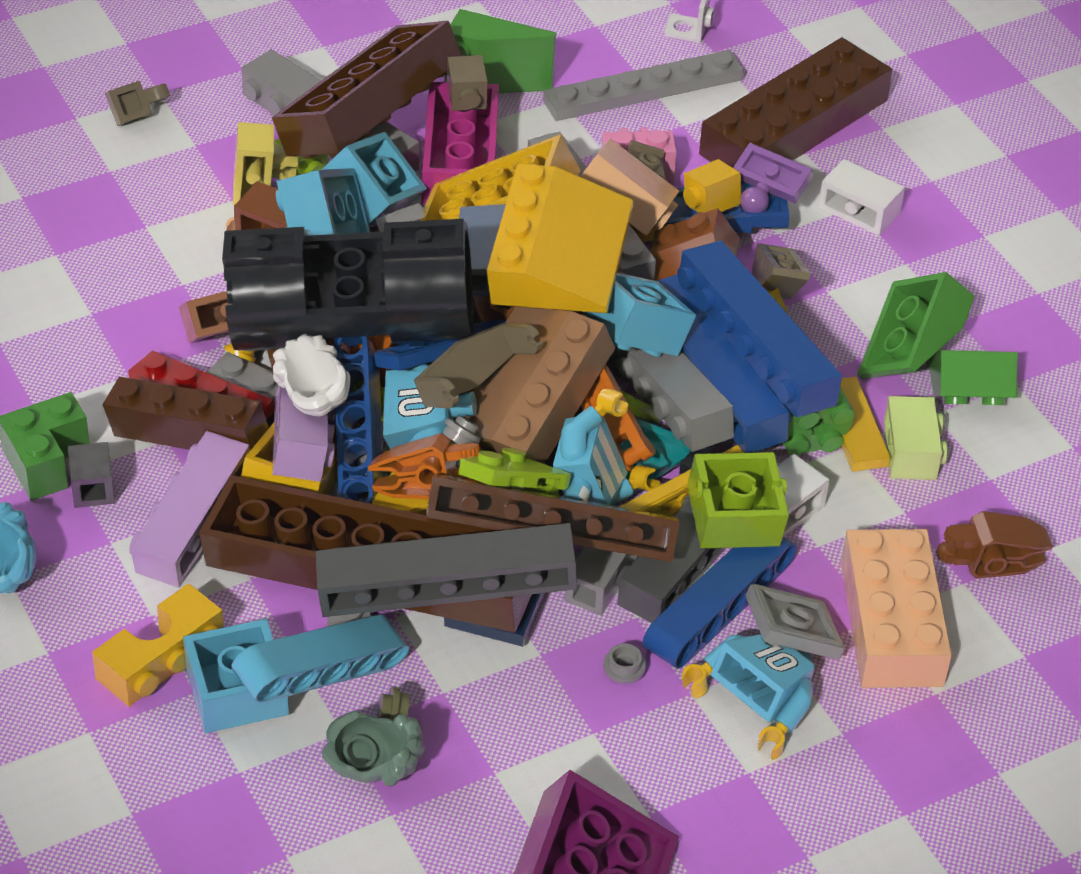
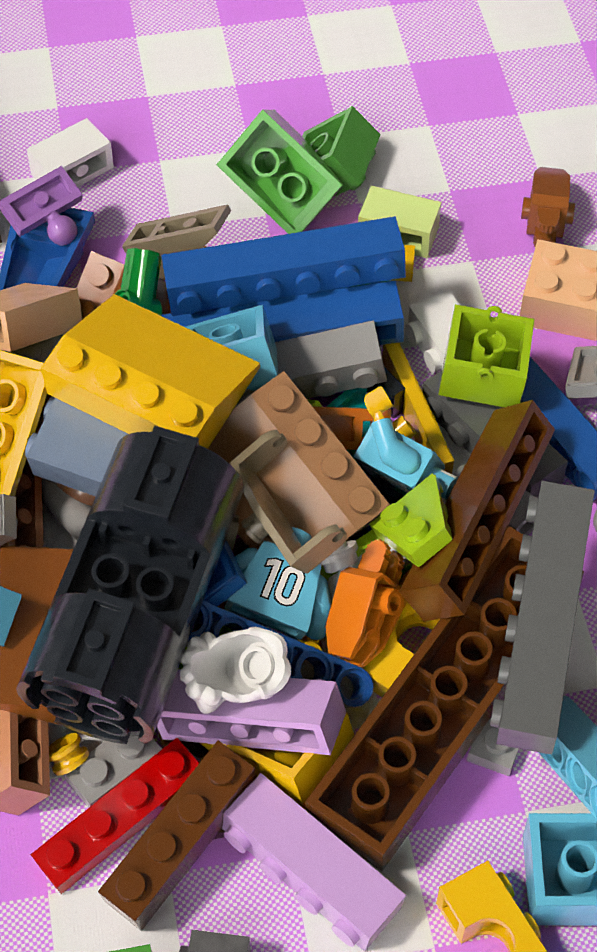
camera: 70 degrees left, 10 degrees up
(669, 249) = (141, 279): none -> green piece
(712, 187) = (30, 255): yellow brick -> none

